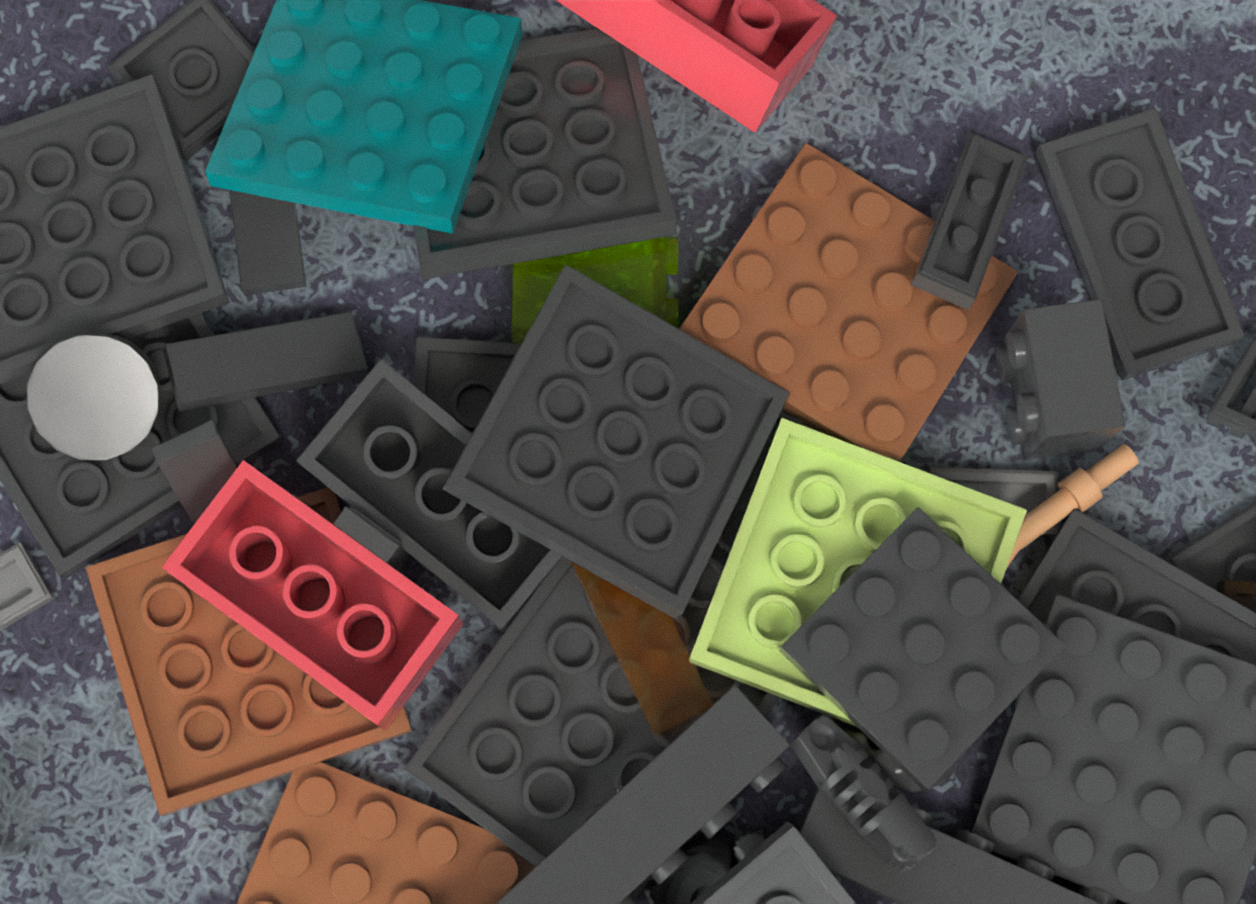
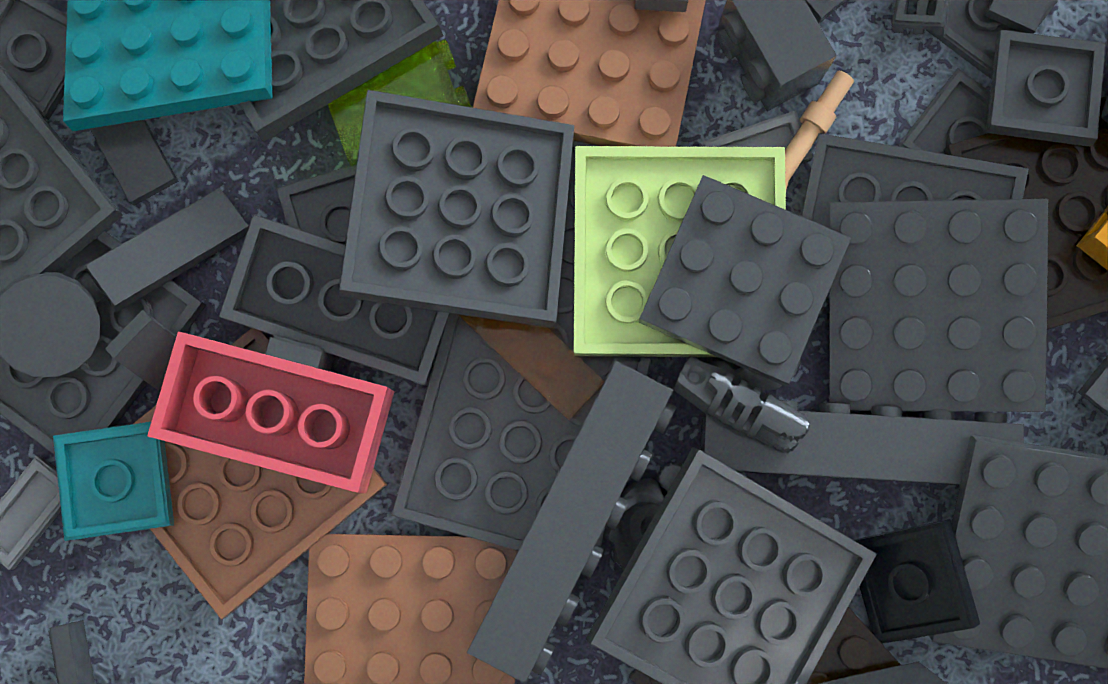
camera: 15 degrees left, 5 degrees up
(97, 605) = (112, 481): none -> teal tile

